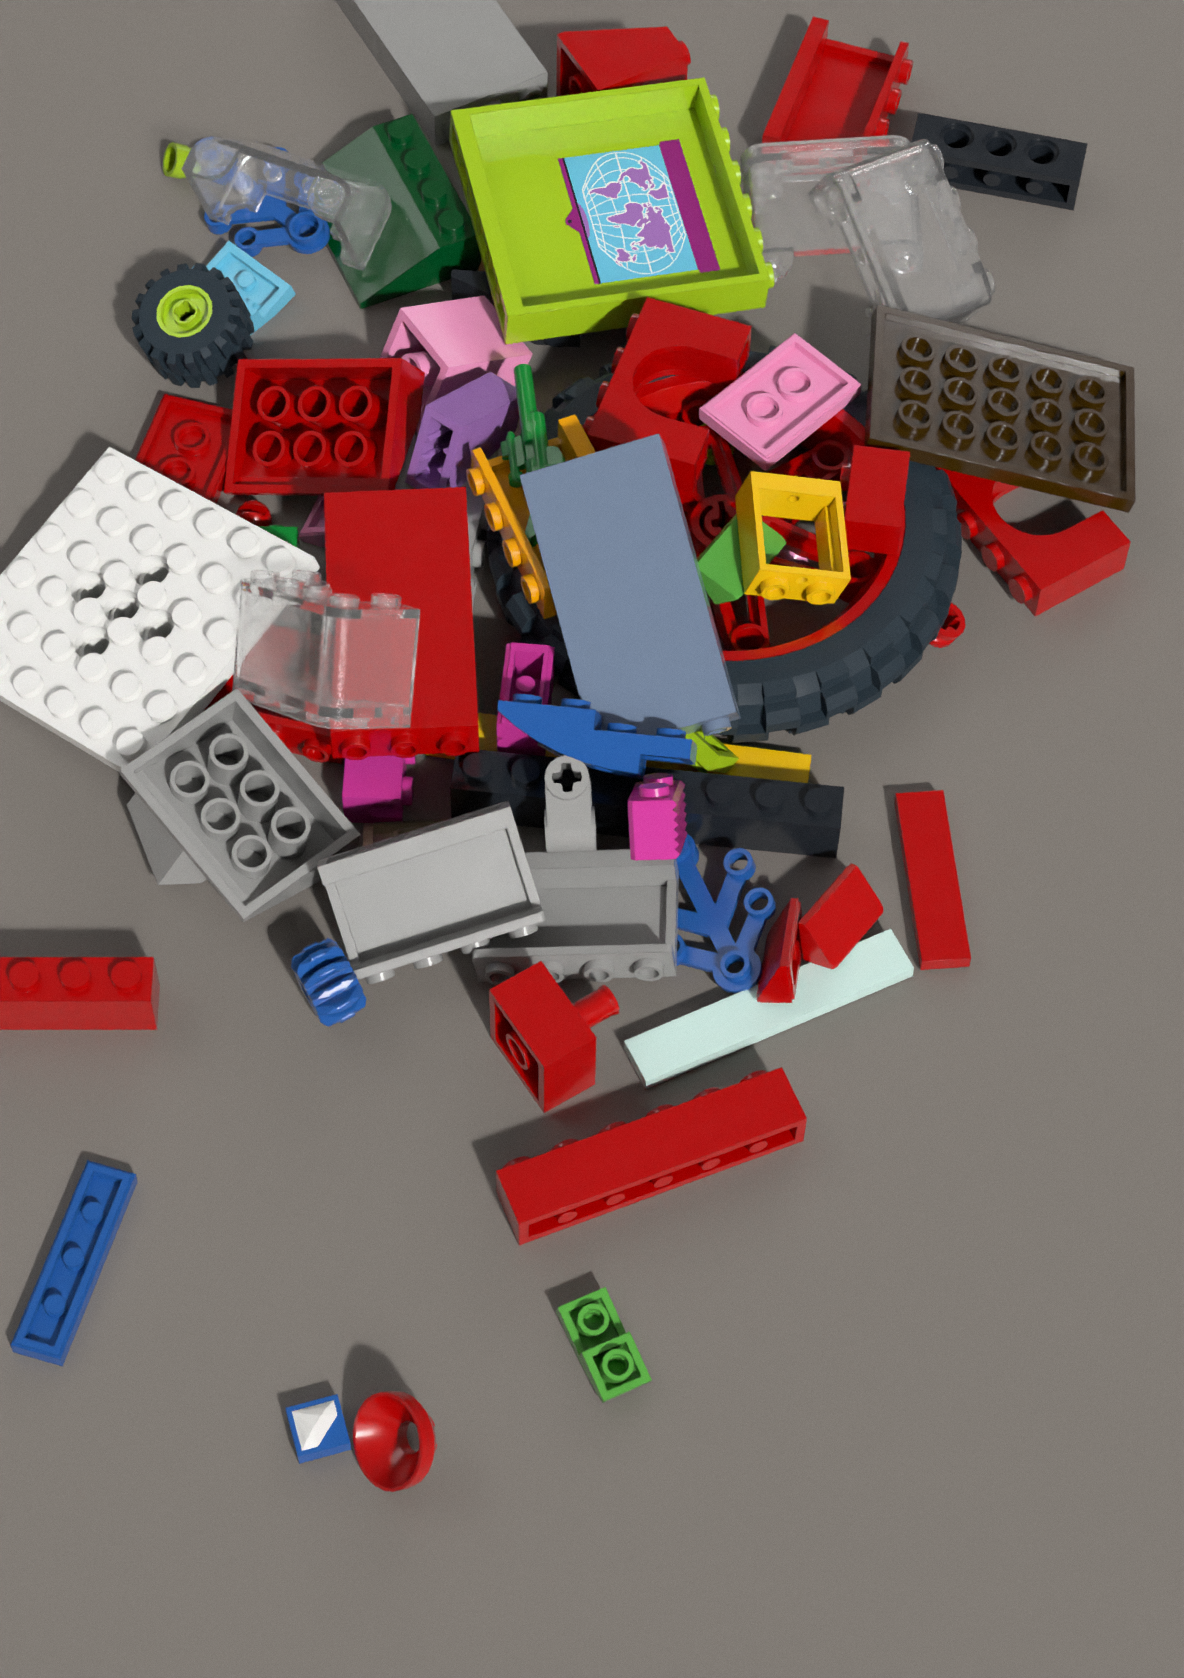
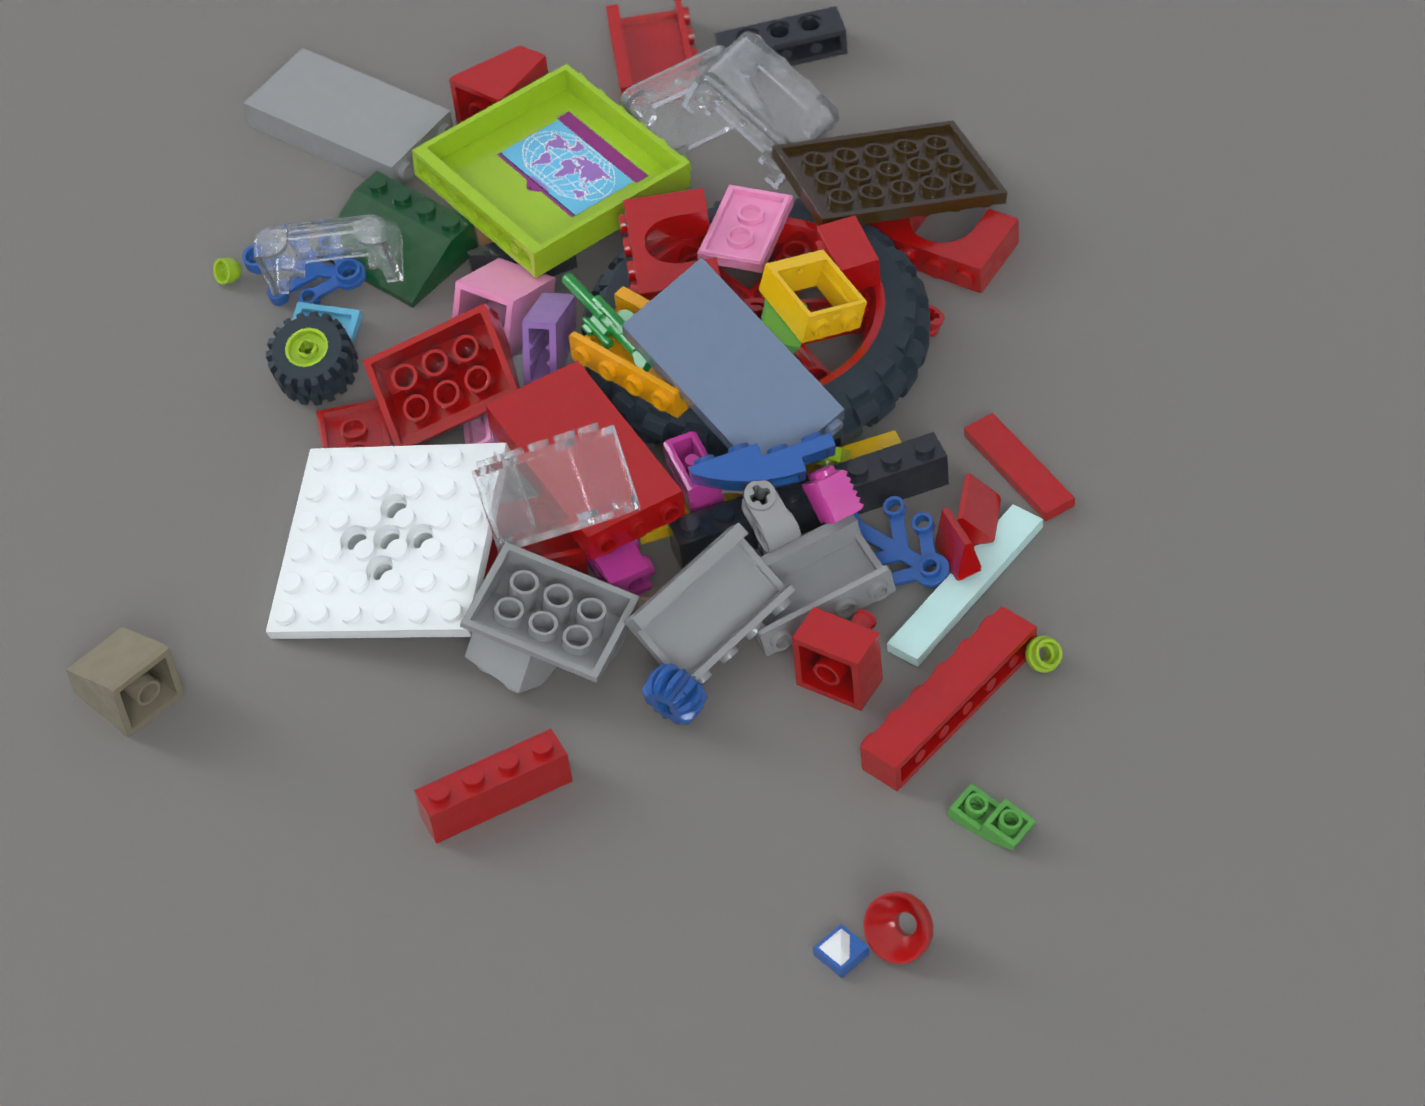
camera: 20 degrees left, 10 degrees down
(74, 1263) = (614, 936): blue tile -> none
(810, 1164) = (1052, 651): none -> lime plate

